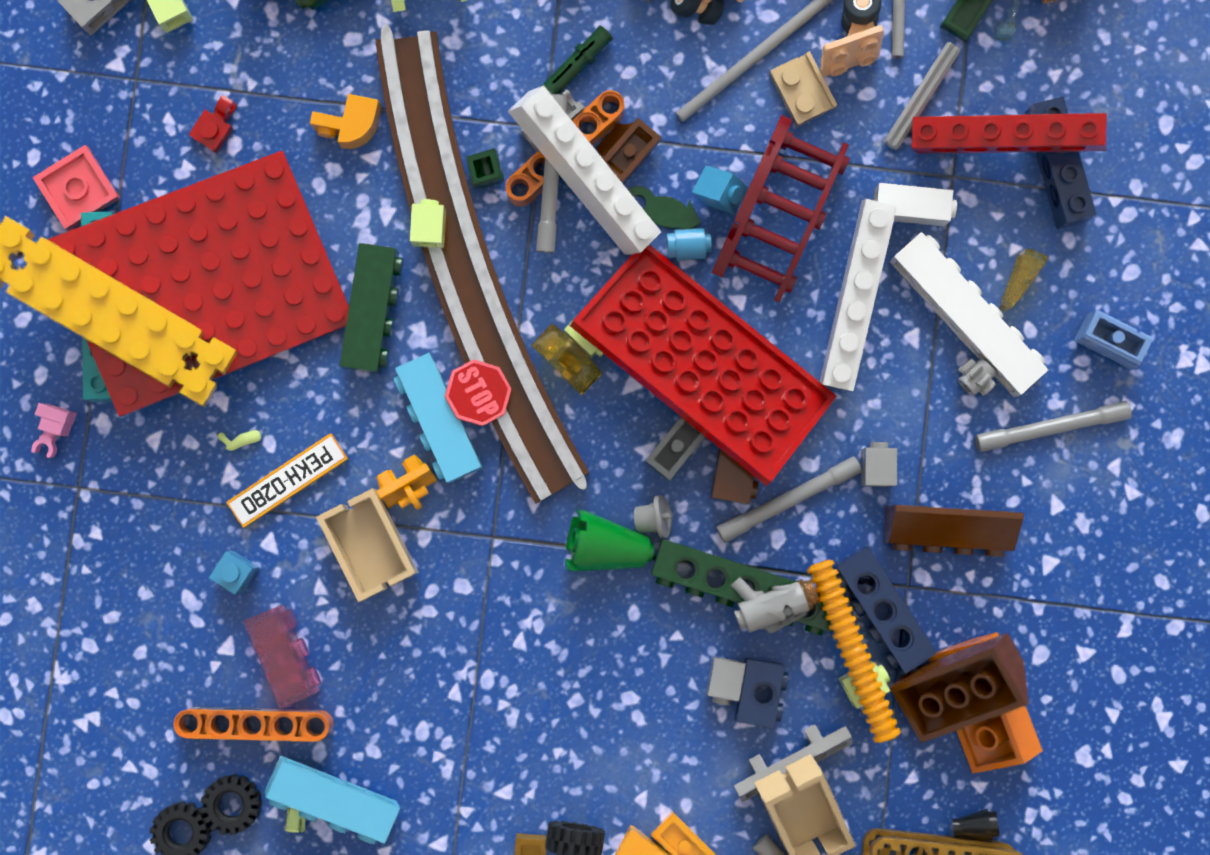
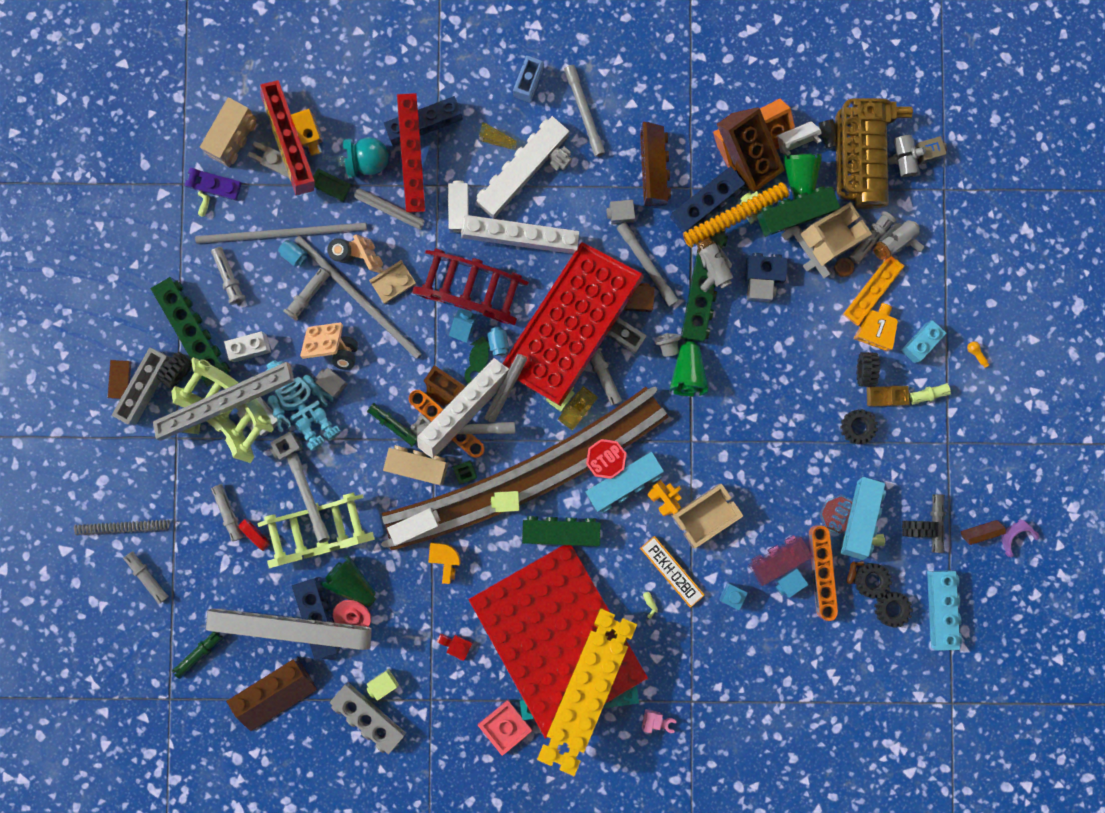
camera: 95 degrees left, 0 degrees up
(243, 668) = (790, 583): none -> dark azure brick
(250, 773) = (852, 572): none -> reddish brown piece
(347, 759) = (836, 514): none -> clear light blue piece
(406, 75) = (414, 526): none -> white brick
(464, 814) = (870, 424): none -> black tyre
(500, 88) = (416, 465): none -> tan piece
(611, 246) = (505, 387): none -> light grey axle
(627, 404) = (601, 368): none -> light grey pin
(749, 823) = (844, 267): none -> reddish brown tile
(848, 754) = (798, 211): none -> dark green brick
(907, 772) = (802, 173): none -> green cone
(974, 773) = (798, 137): none -> white hinge
(1010, 64) = (365, 156): none -> teal tile

